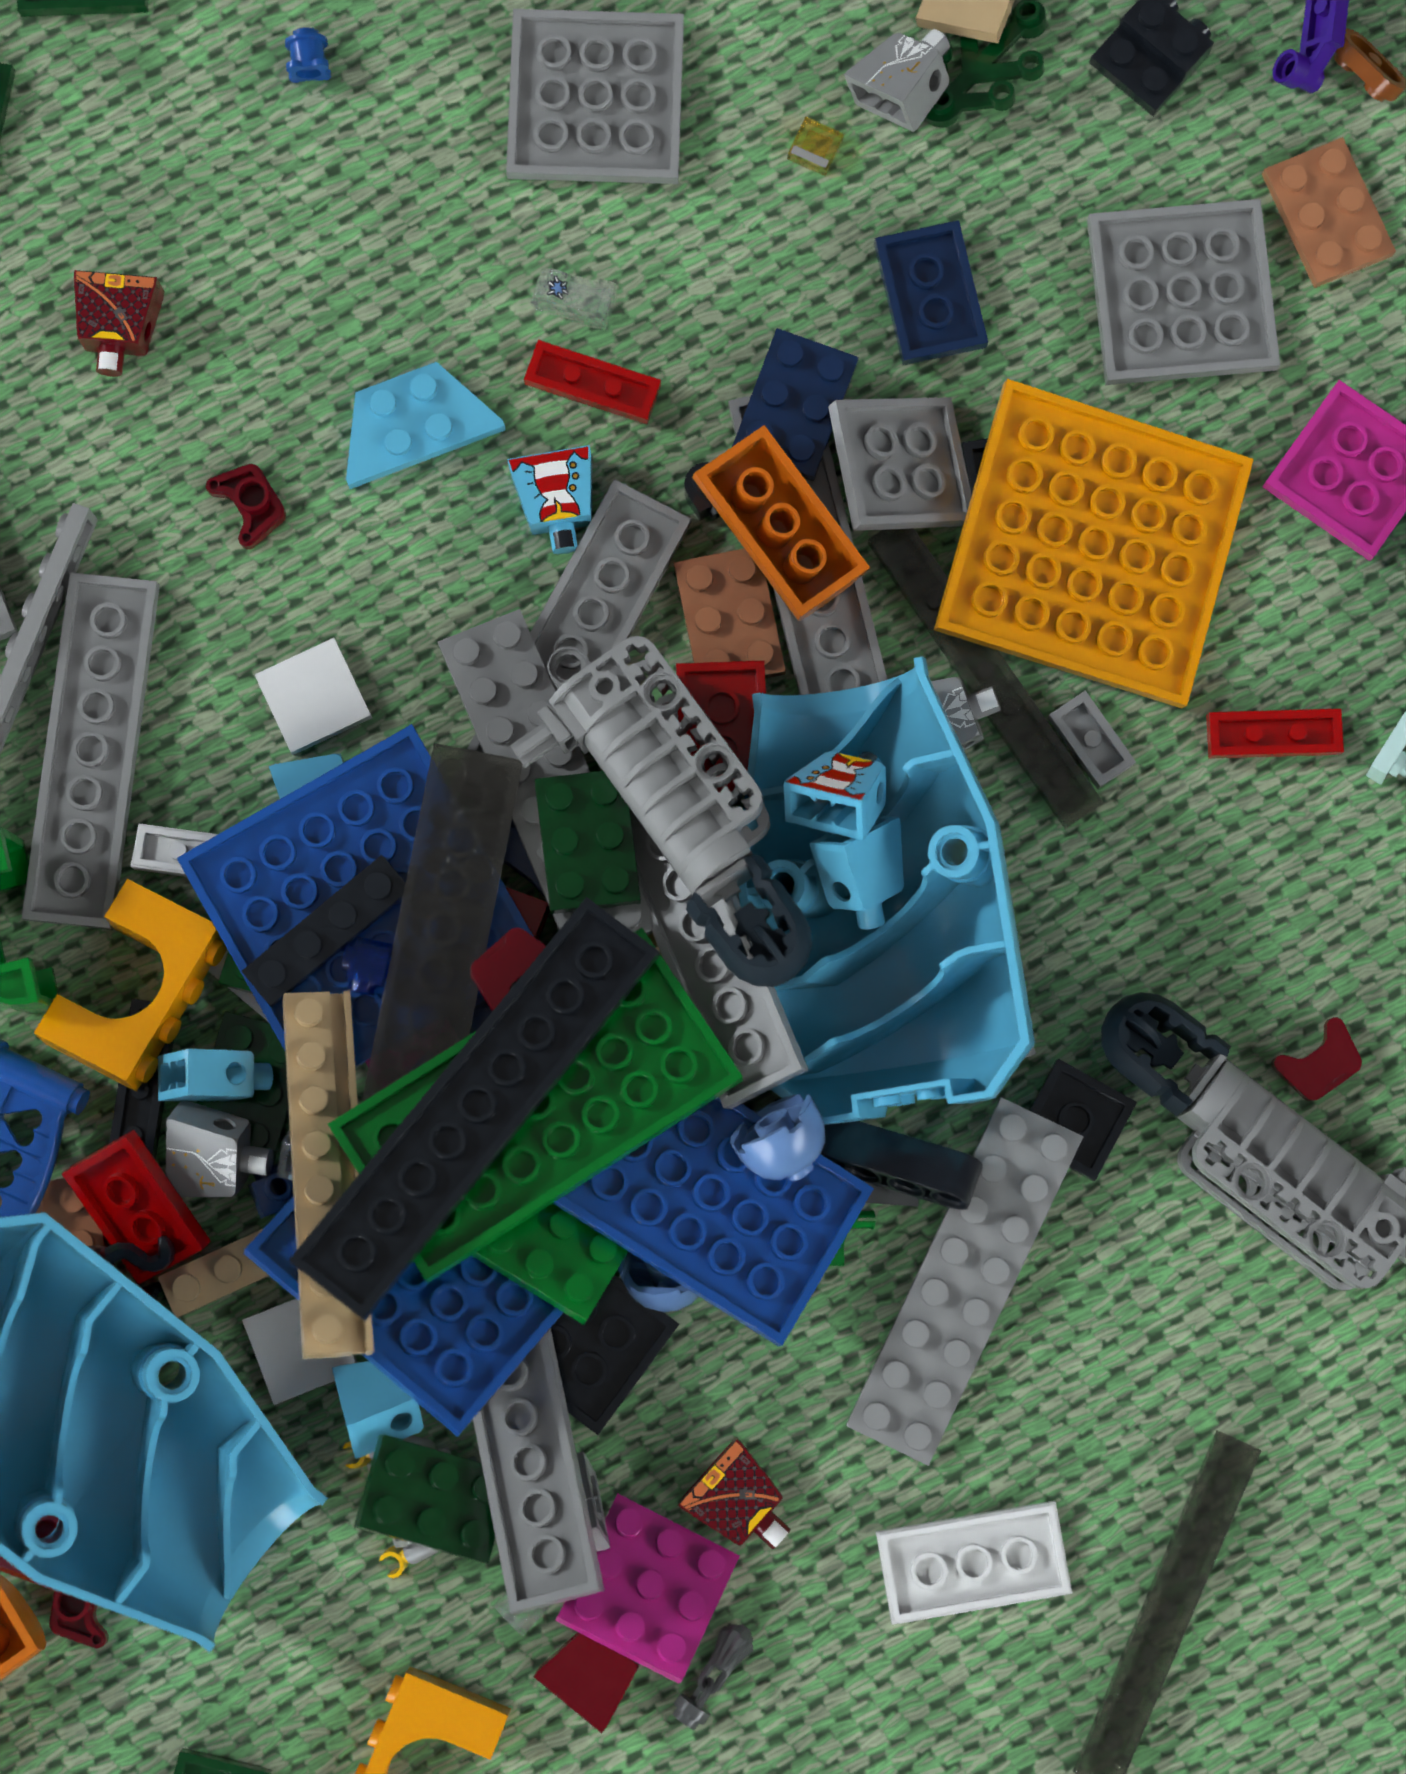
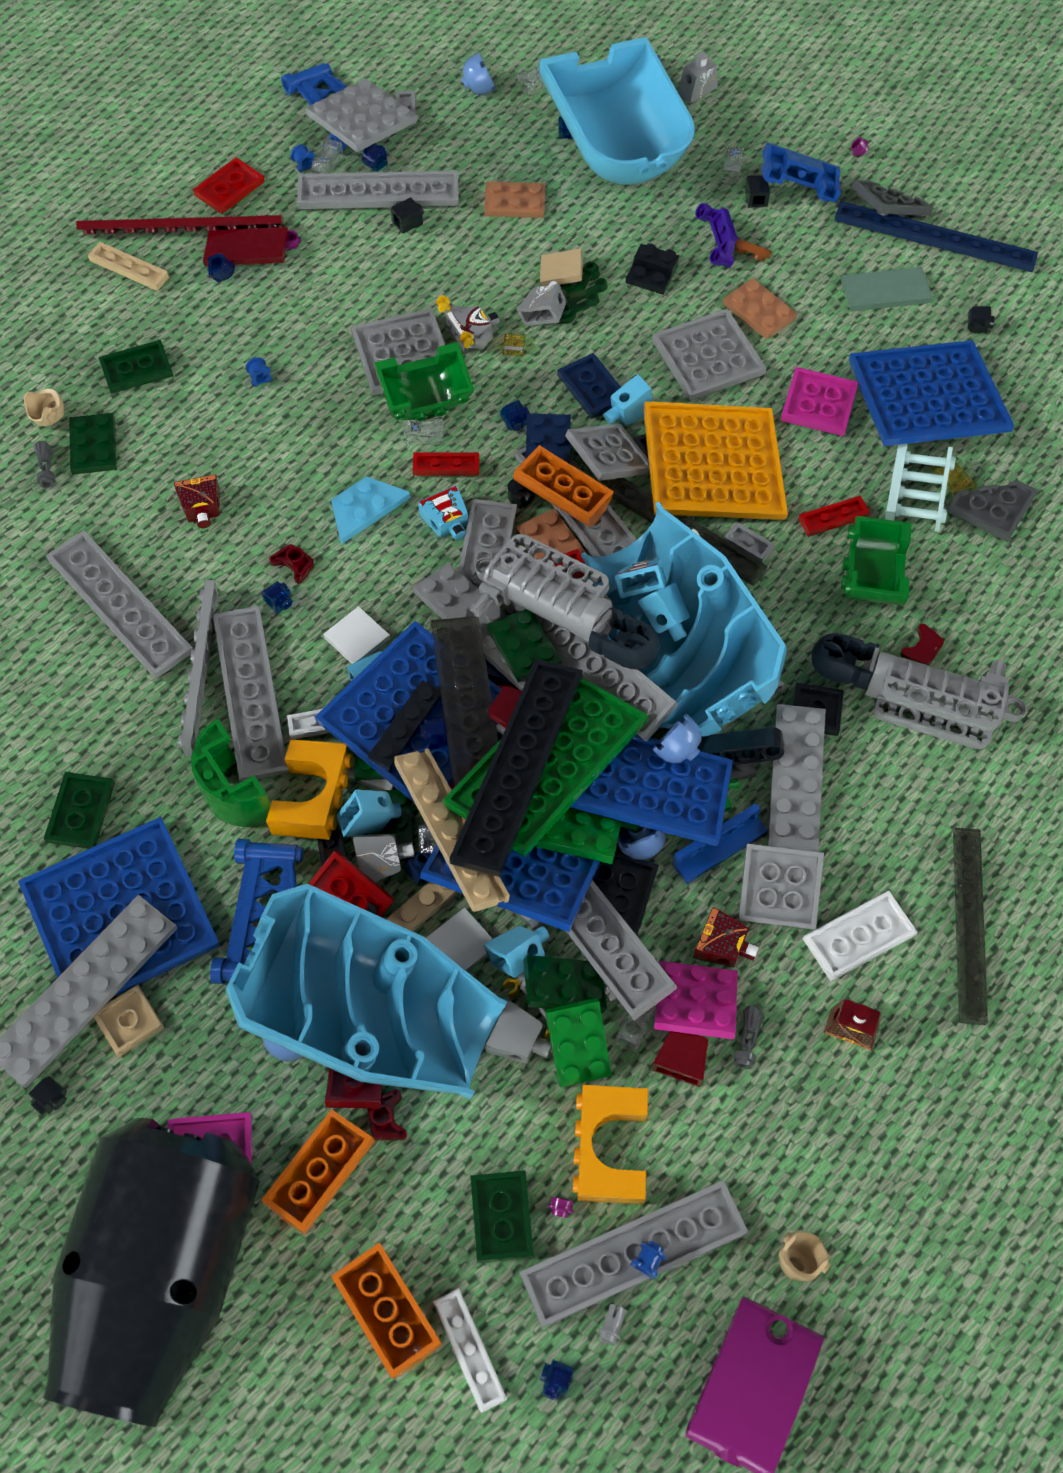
camera: 20 degrees left, 20 degrees down
(196, 571) = (277, 597): none -> clear blue plate
(331, 1547) = (517, 1035): none -> light grey torso
(423, 1600) = (578, 1042): none -> green plate
(598, 205) = (425, 385): none -> green cylinder
(741, 78) = (468, 324): none -> torso
(756, 318) = (514, 415): none -> clear blue plate
(823, 1318) = (735, 834): none -> blue fence
(868, 1440) = (781, 886): none -> light grey plate
(889, 1719) = (853, 1023): none -> dark red torso
(993, 353) = (629, 402): none -> medium azure torso
(1302, 875) = (877, 561): none -> green cylinder

